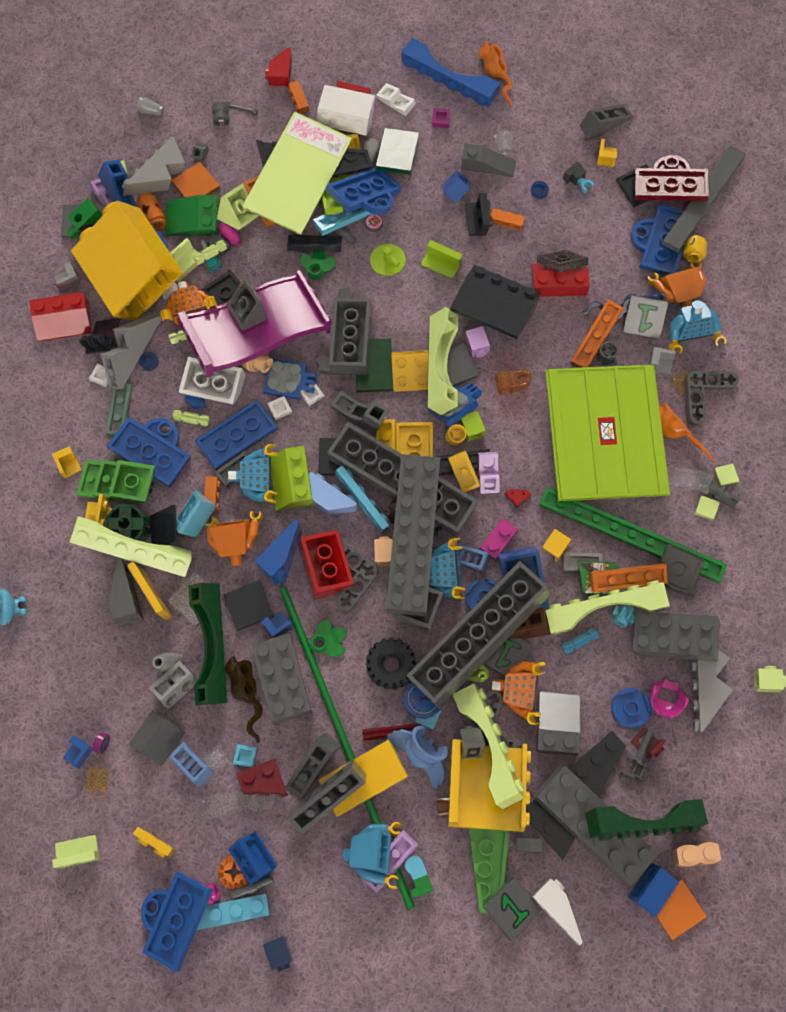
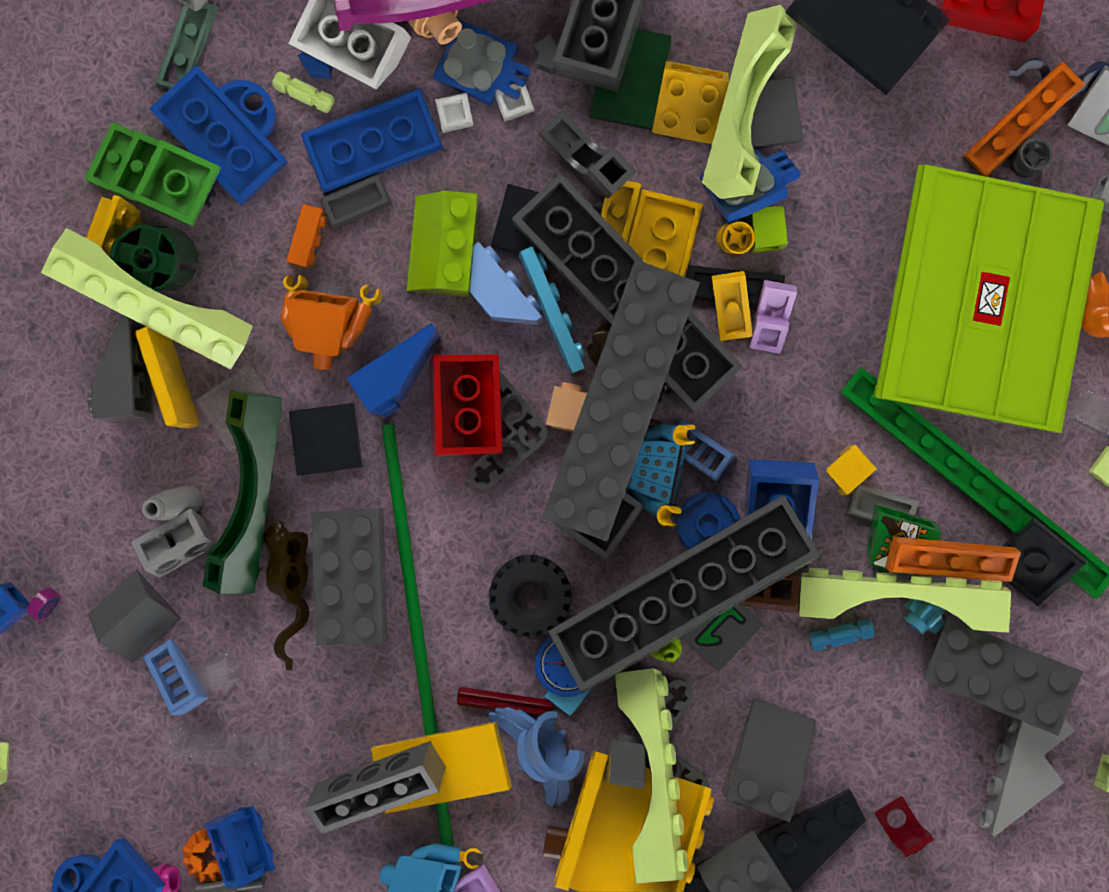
camera: 10 degrees right, 15 degrees up
(66, 462) = (79, 119): yellow panel -> none
(97, 779) = (27, 658): clear yellow tile -> none
(146, 838) = (85, 772): yellow plate -> none
(164, 526) = (215, 276): black piece -> none
(194, 514) = (269, 266): medium azure slope -> none
(244, 756) = (265, 680): medium azure tile -> none
(255, 475) = (385, 224): dark azure torso -> none
(262, 779) = (283, 727): dark red wing -> none
(277, 625) = (363, 484): blue panel -> none
(312, 765) = (368, 725): dark grey slope -> none
(331, 639) = (445, 528): green plate -> none
(477, 342) = (816, 81): lavender brick -> none
(499, 538) = (758, 432): dark pink plate -> none
(510, 381) = (852, 164): clear orange piece -> none
(517, 496) = (808, 368): red tile -> none
(521, 689) = (726, 694): orange torso -> none
(631, 714) = (880, 760): blue tile -> none
(640, 756) = (882, 843): dark grey piece -> none
(666, 708) = (948, 780): dark pink helmet -> none

